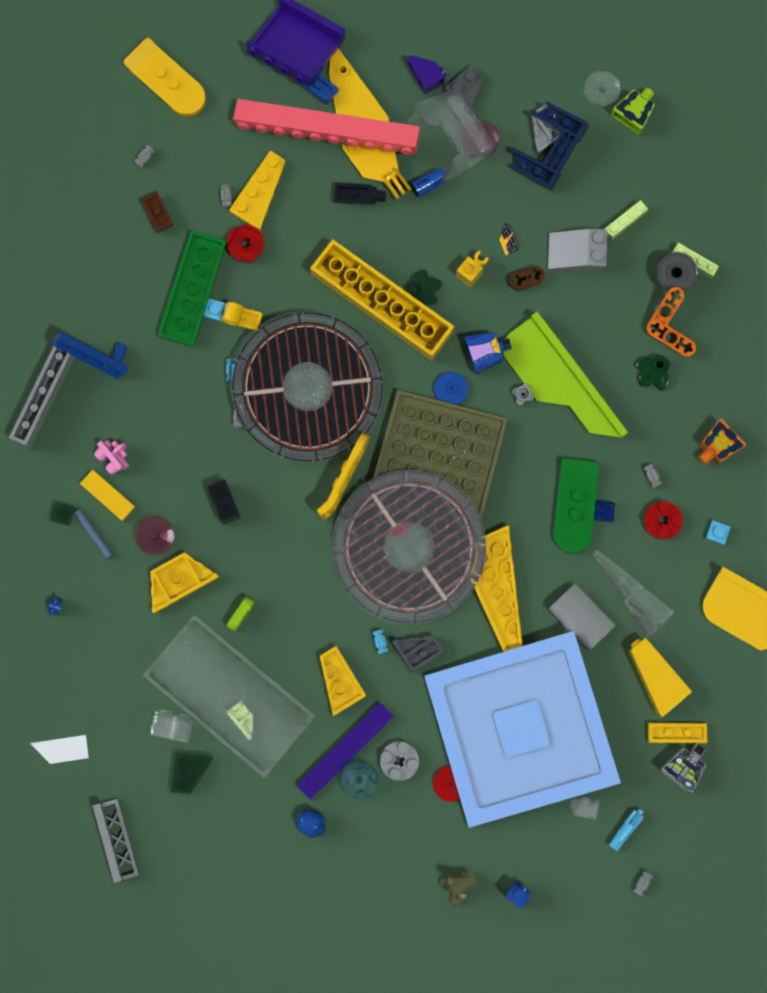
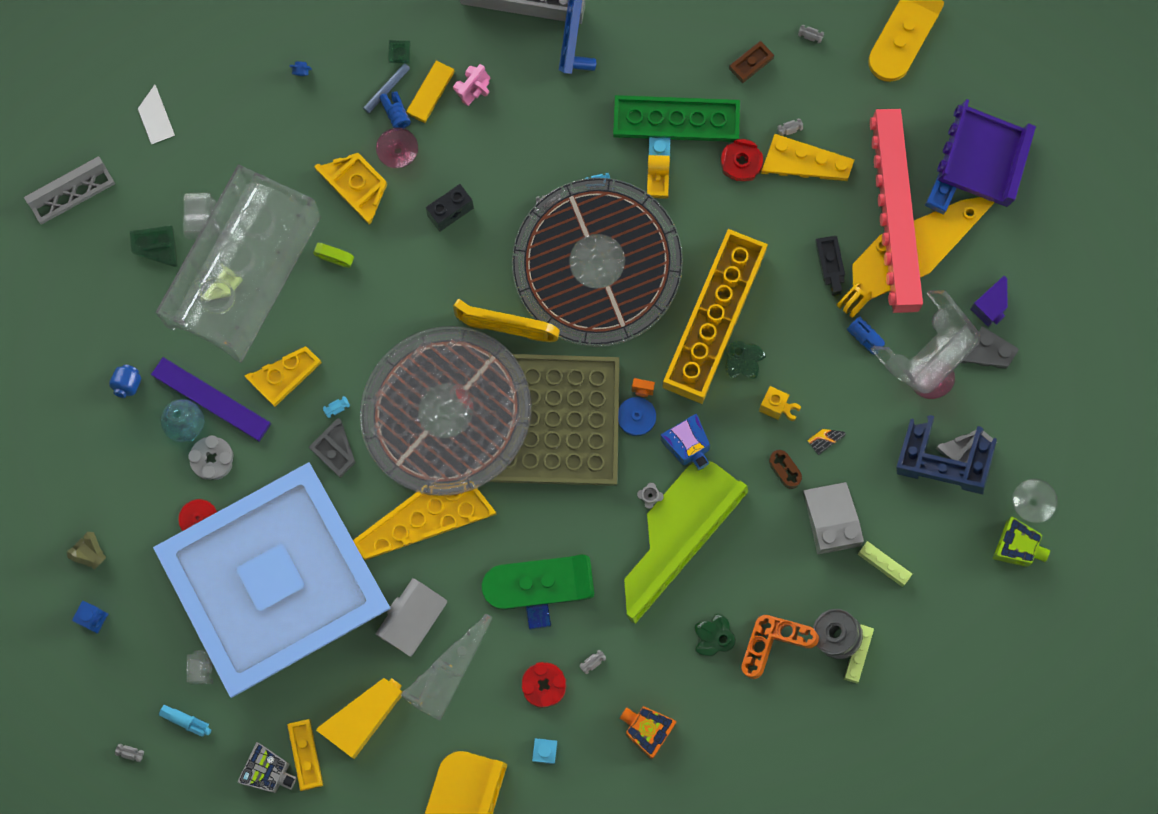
camera: 75 degrees right, 5 degrees down
(118, 530) = (395, 111): none -> blue hinge
(429, 376) = (643, 387): none -> orange plate

